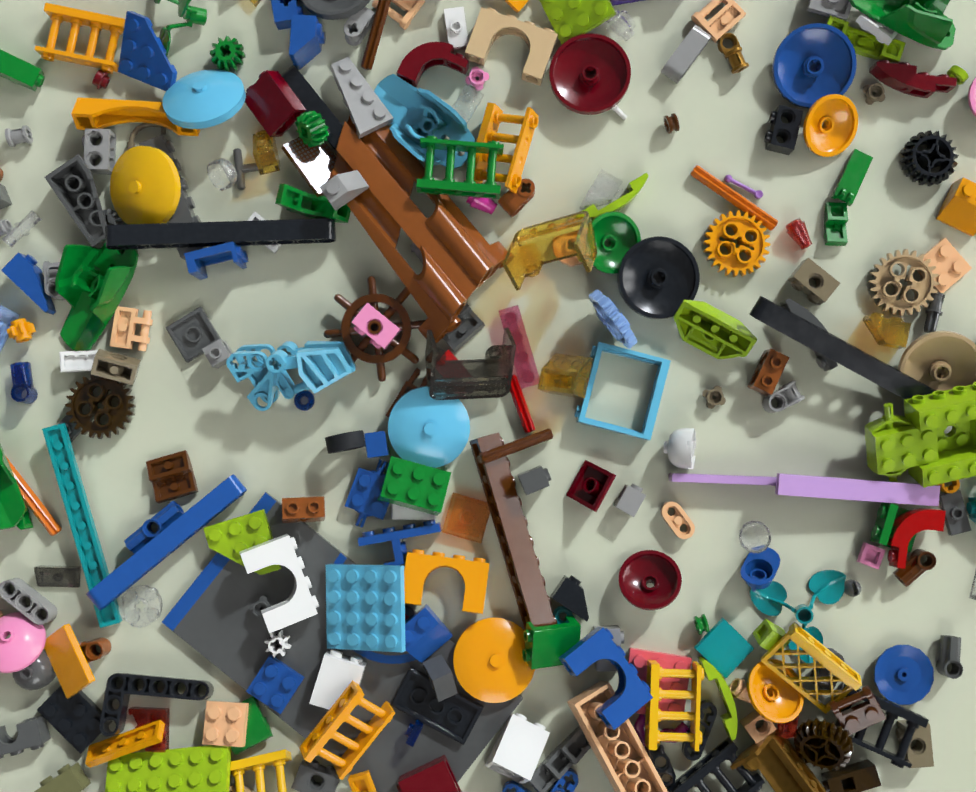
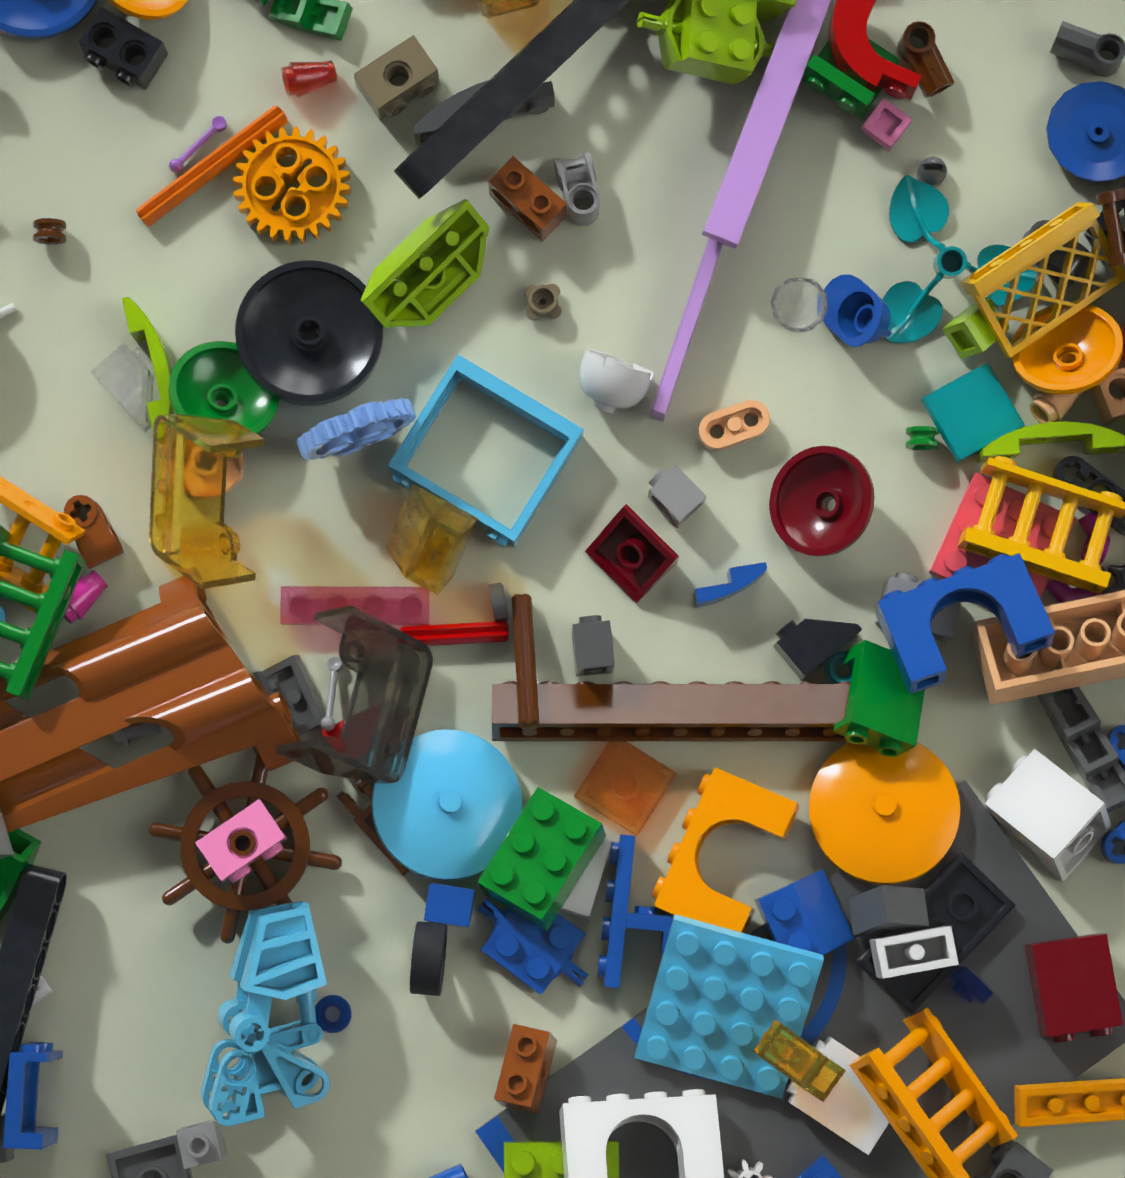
camera: 75 degrees left, 5 degrees down
(345, 654) = (799, 1060): none -> clear yellow slope
(421, 698) = (913, 952): none -> white brick
(484, 346) = (335, 665): none -> light grey hinge
(544, 422) = (498, 601): none -> dark grey tile
(594, 546) = (738, 580): none -> blue slope

